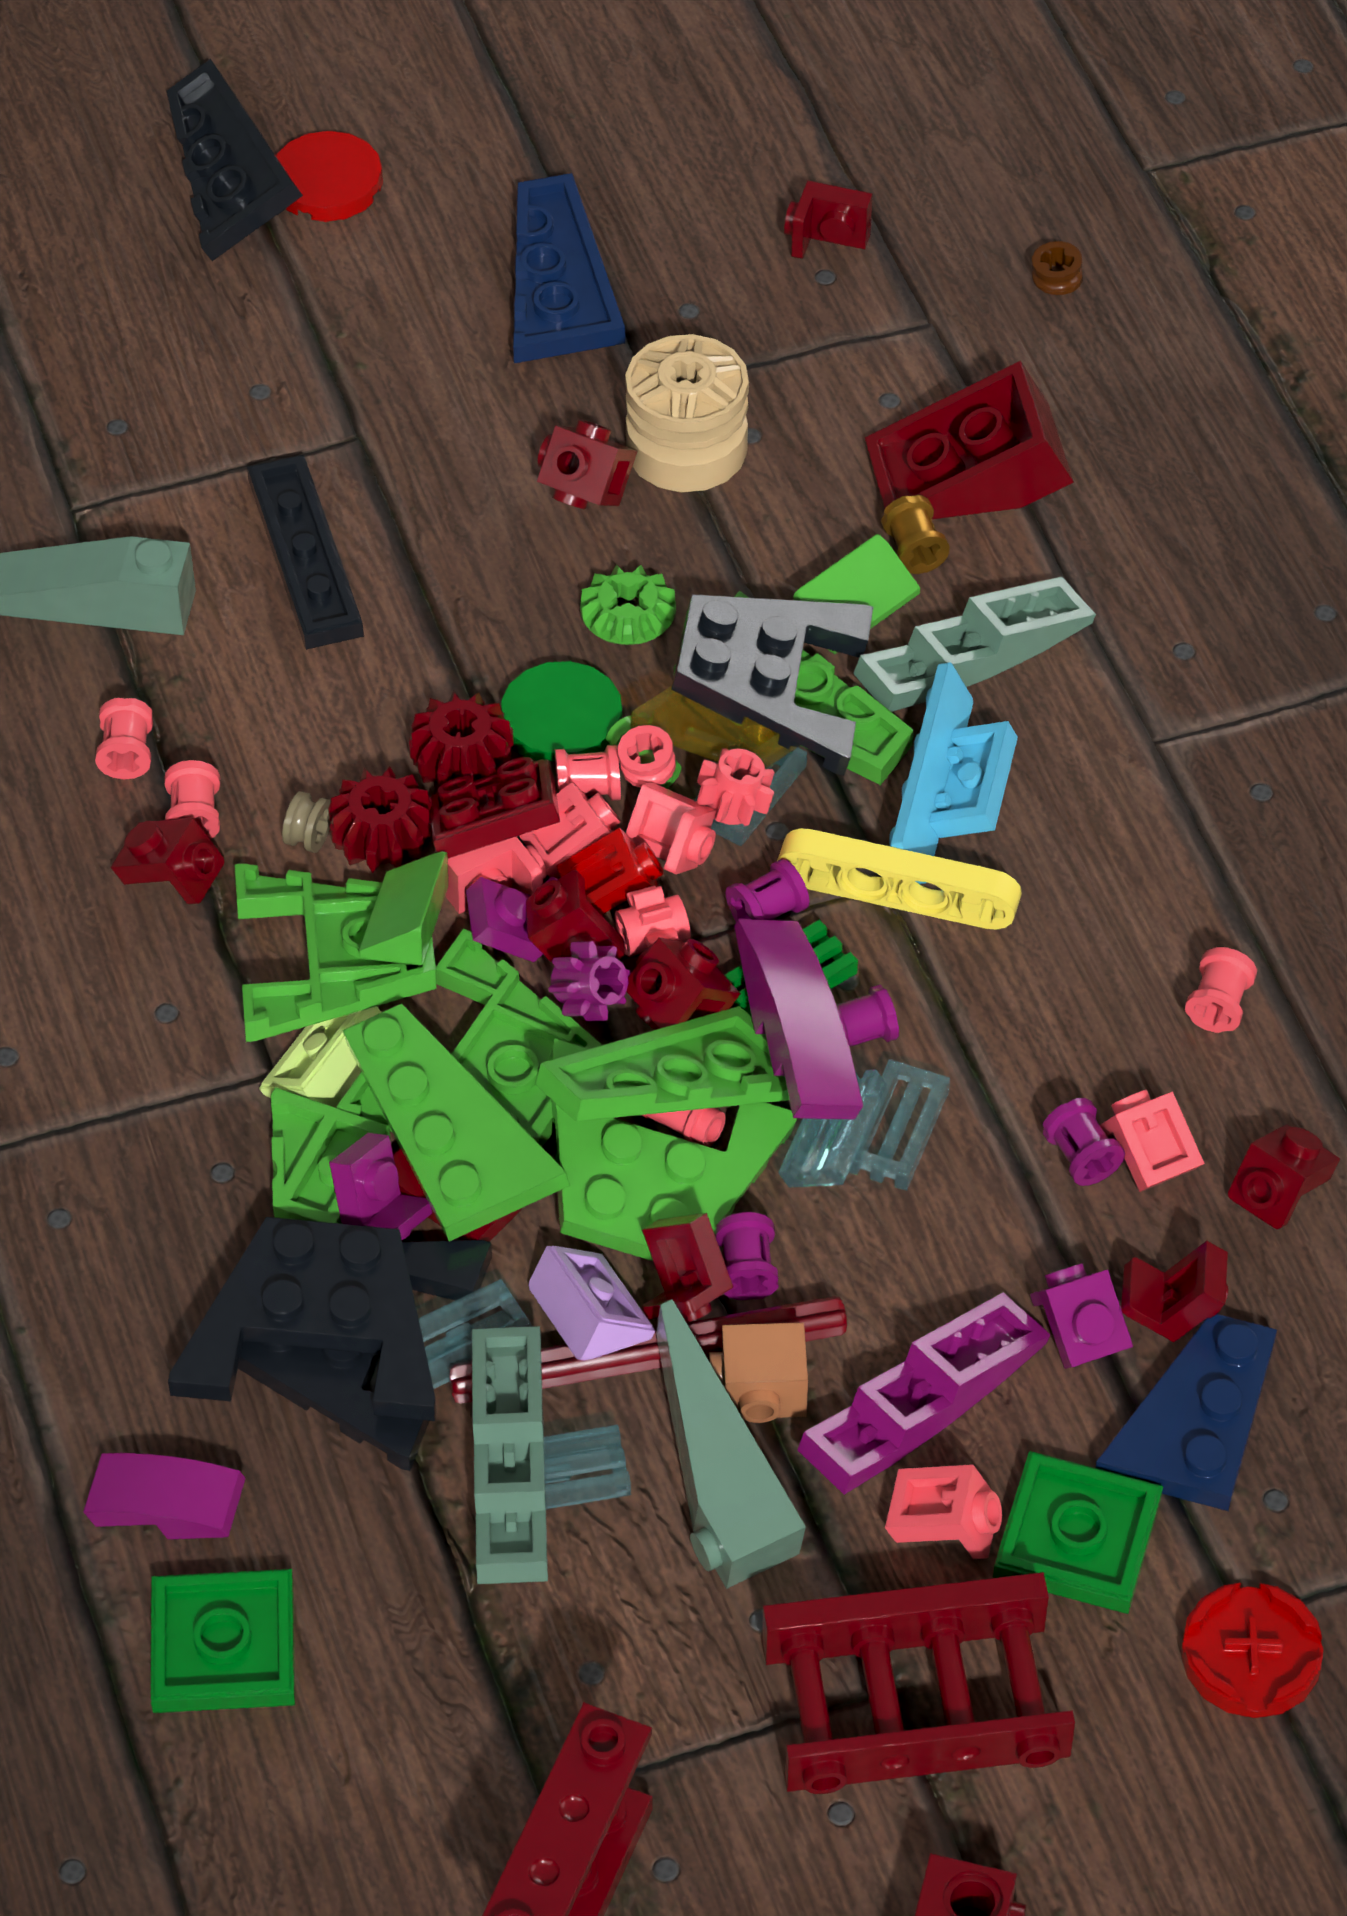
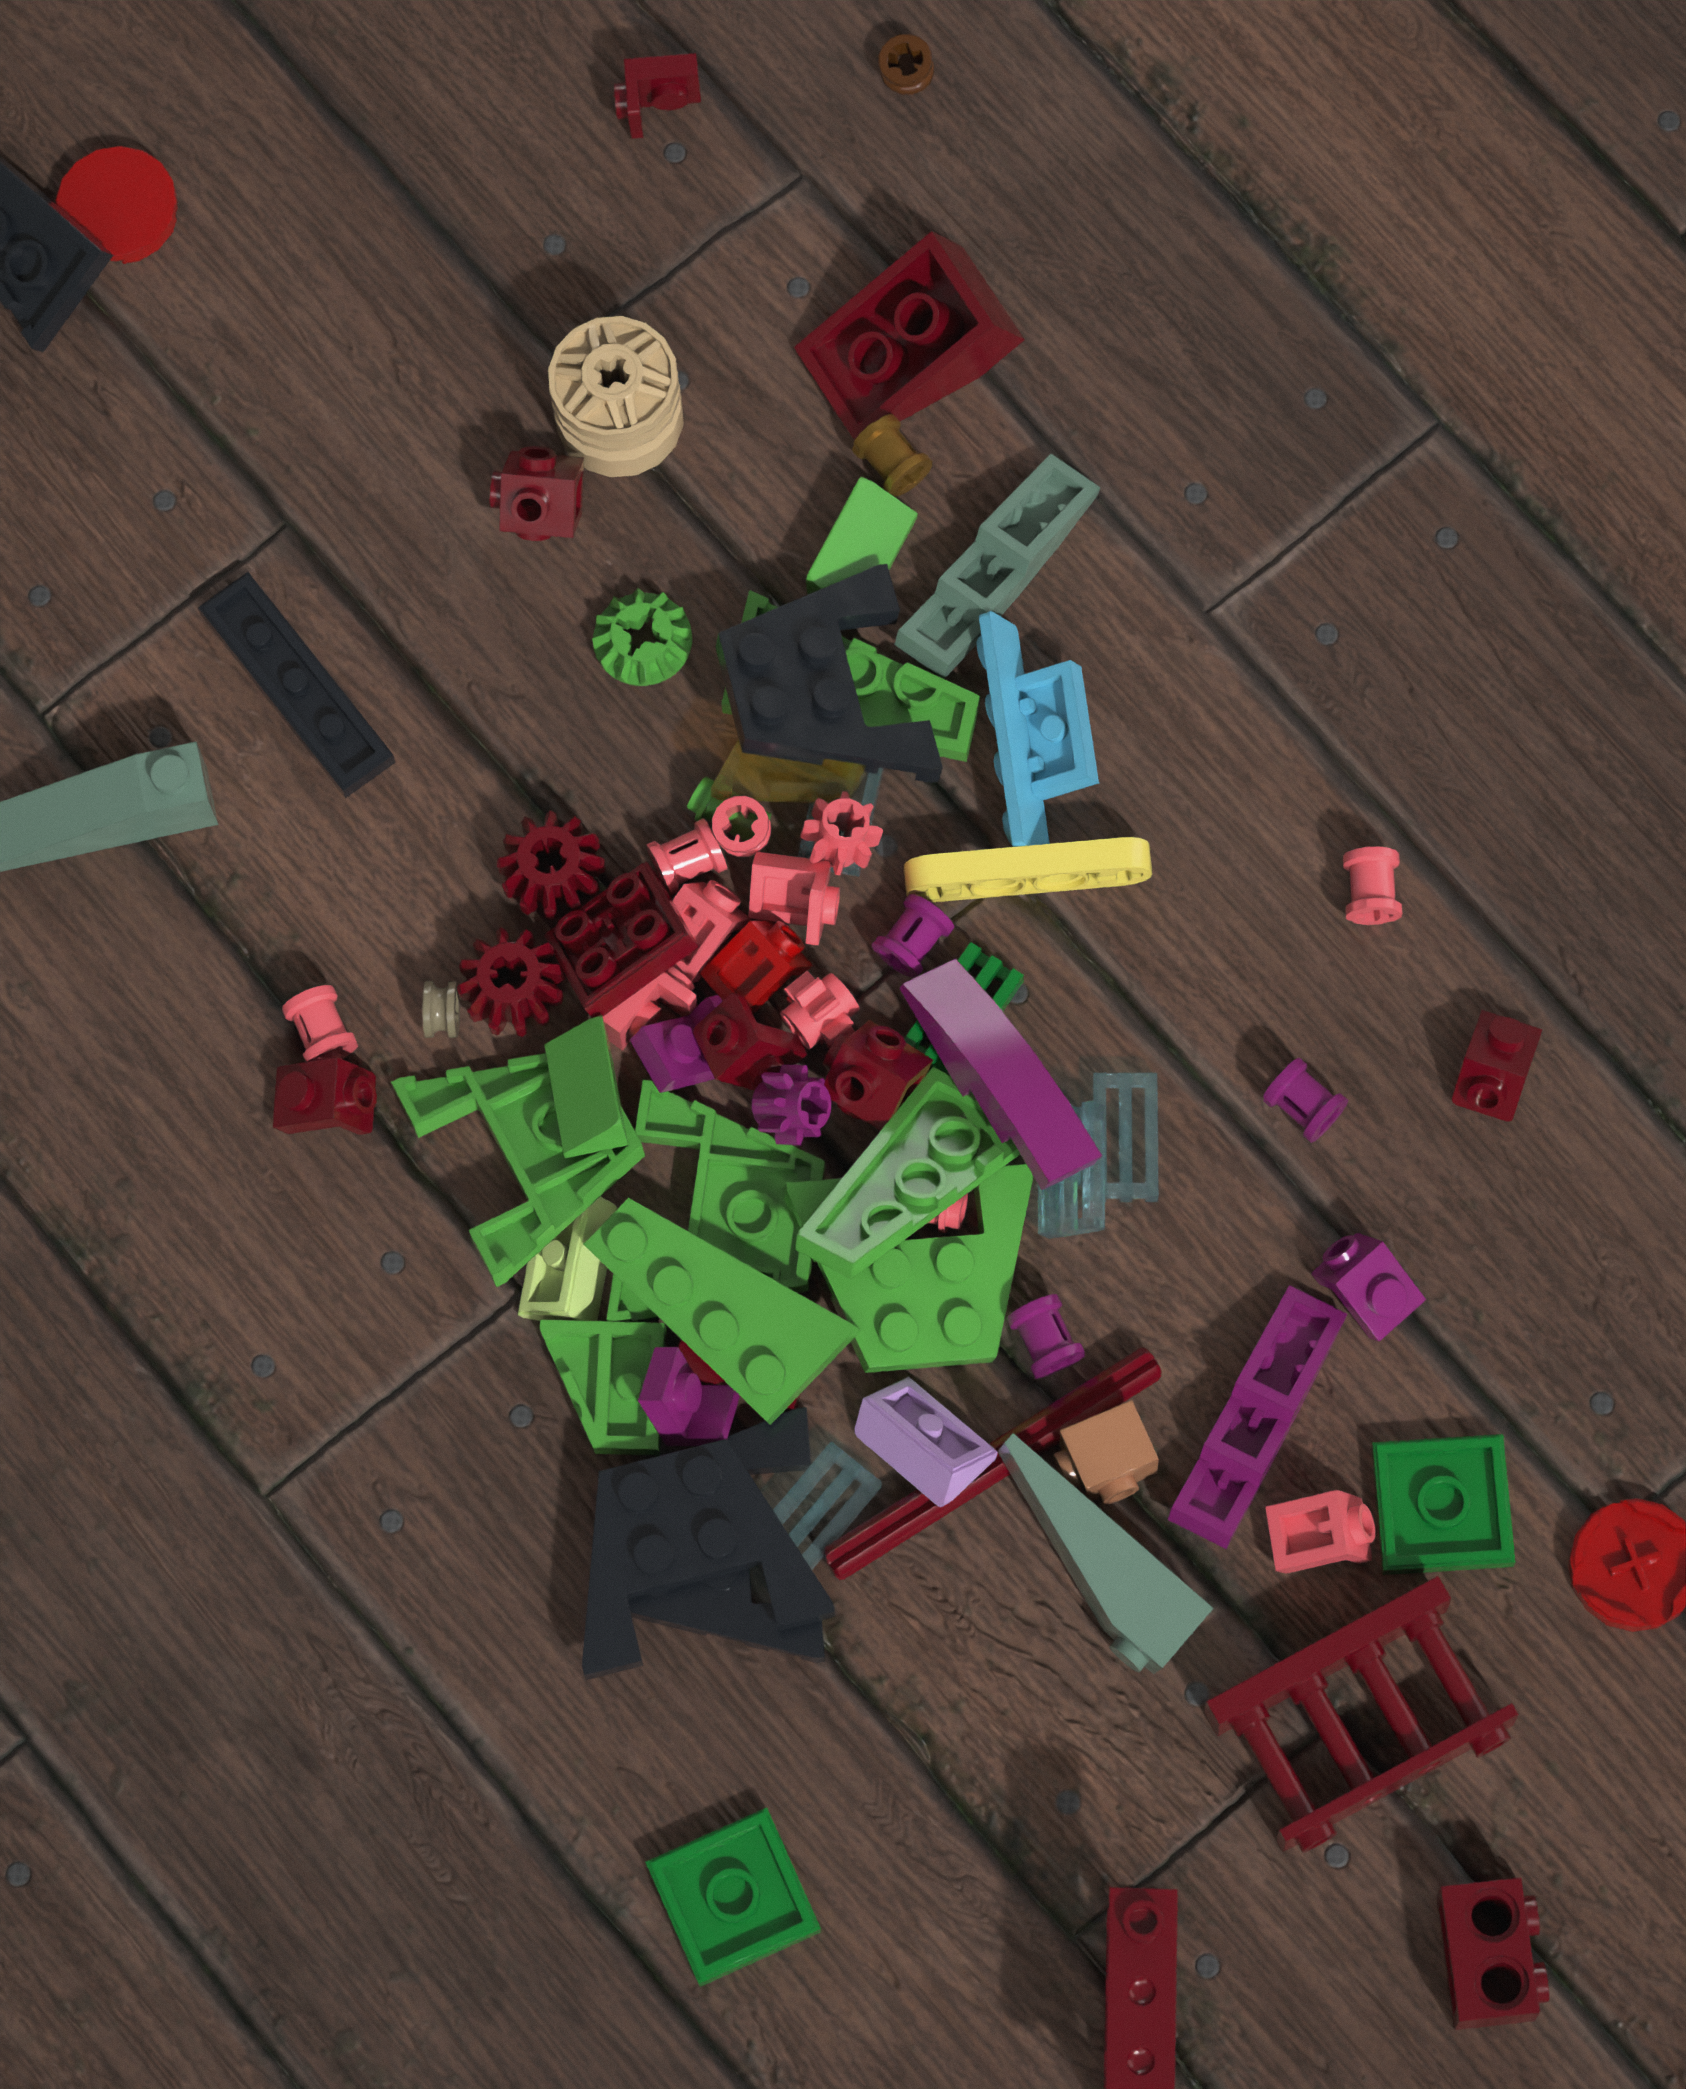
camera: 15 degrees left, 20 degrees up
(124, 746) = (221, 977): coral bush -> none
(166, 1491) = (621, 1777): magenta slope -> none
(509, 1455) = (918, 1628): sand green slope -> none
(560, 277) = (416, 262): dark blue wing -> none
(561, 709) = (629, 788): green tile -> none
(580, 1454) = (1006, 1587): clear light blue tile -> none
(687, 1265) = (1003, 1377): dark red bracket -> none
(869, 1017) = (1058, 1037): magenta bush -> none
(1153, 1138) = (1366, 1073): coral bracket -> none
(1181, 1296) = (1448, 1235): dark red bracket -> none
(1198, 1415) = (1508, 1347): dark blue wing -> none

